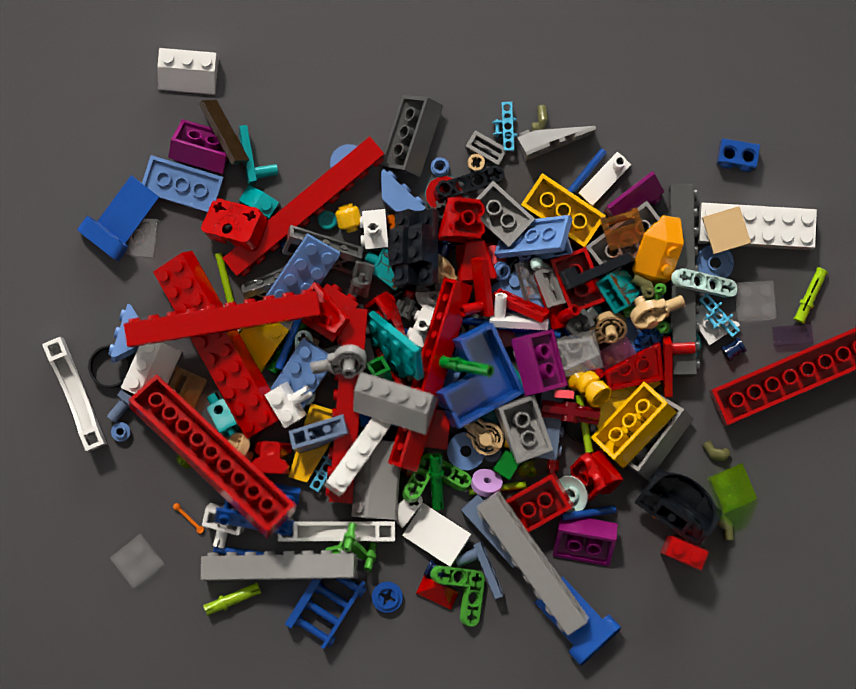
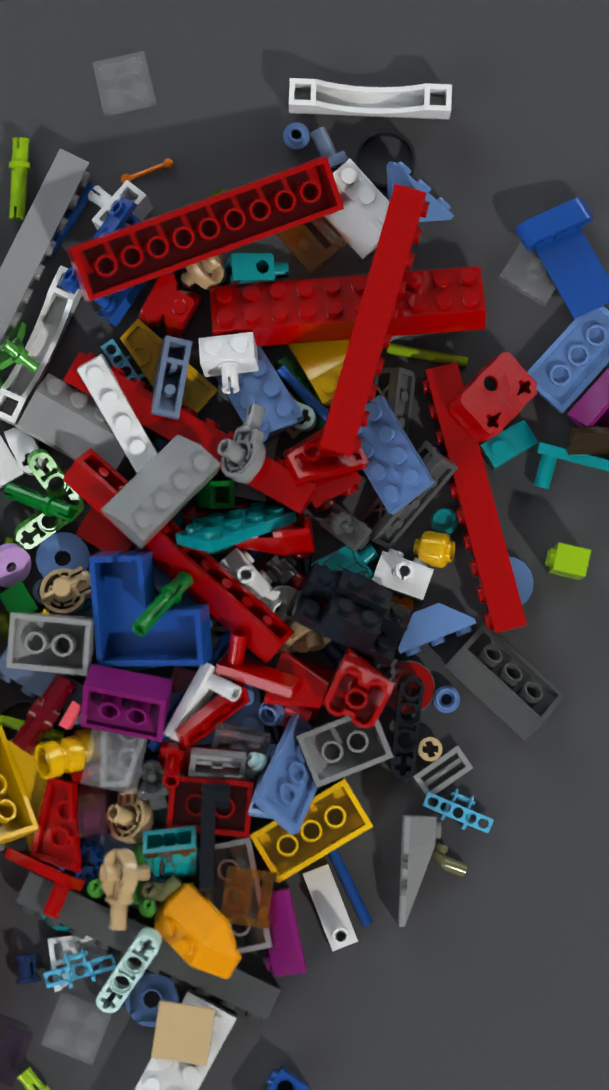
camera: 115 degrees right, 0 degrees up
(317, 129) = (567, 561): none -> lime brick

